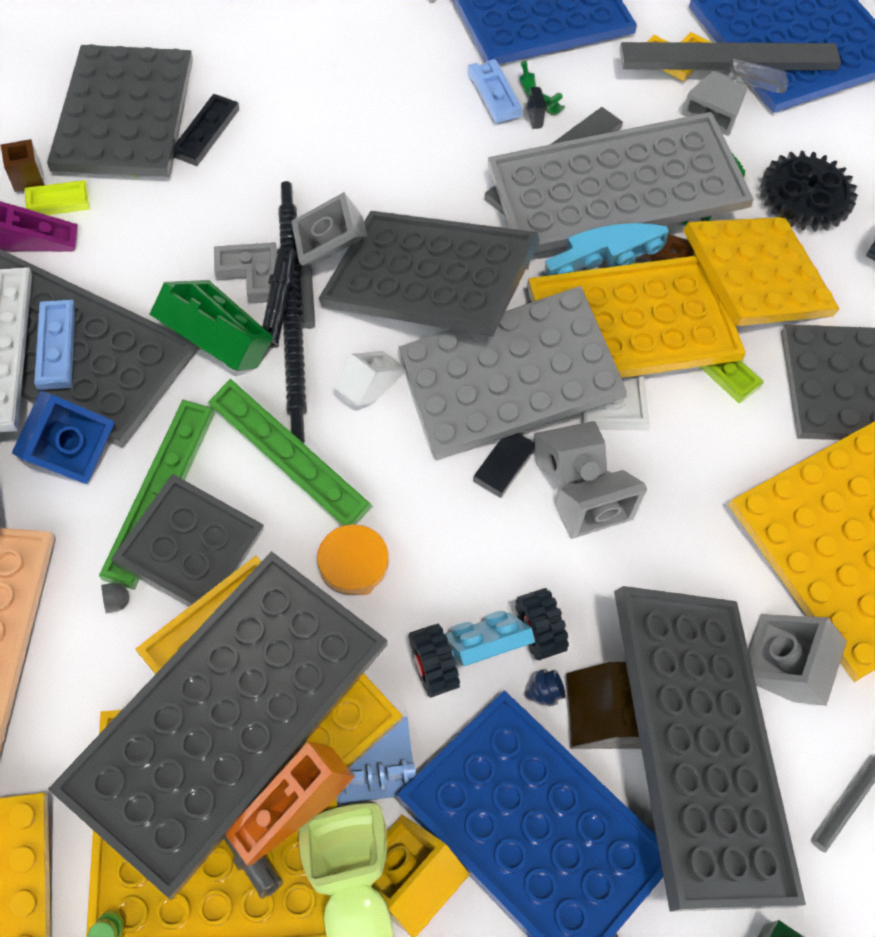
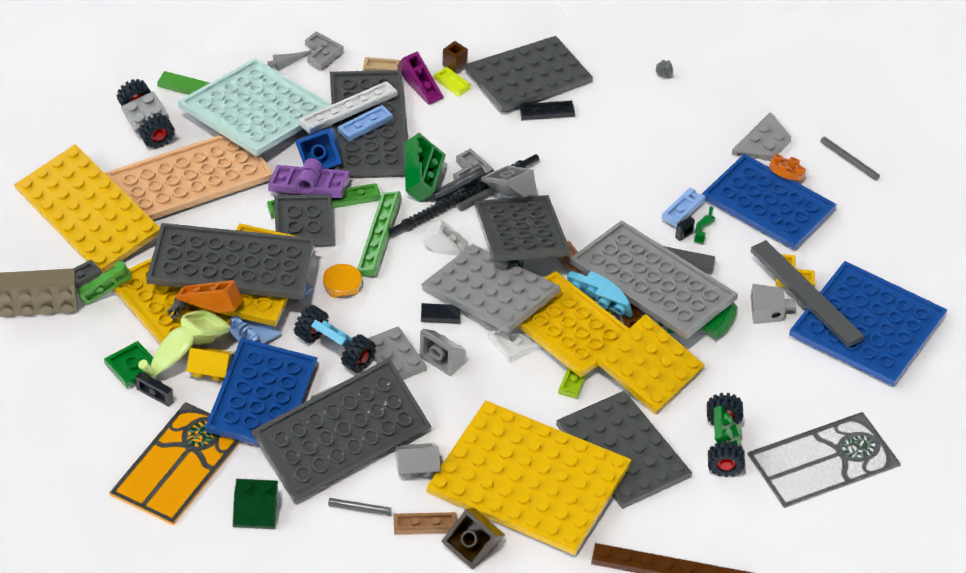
camera: 60 degrees right, 15 degrees down
(109, 488) = (309, 180): none -> medium lavender plate
(114, 597) = (260, 211): dark grey hinge -> none
(546, 688) = (332, 374): dark blue plate -> none
(566, 566) = (401, 352): none -> light grey plate
(572, 452) = (458, 328): light grey torso -> none
(758, 76) = (797, 308): clear tile -> none
(808, 191) = (748, 366): black gear -> none

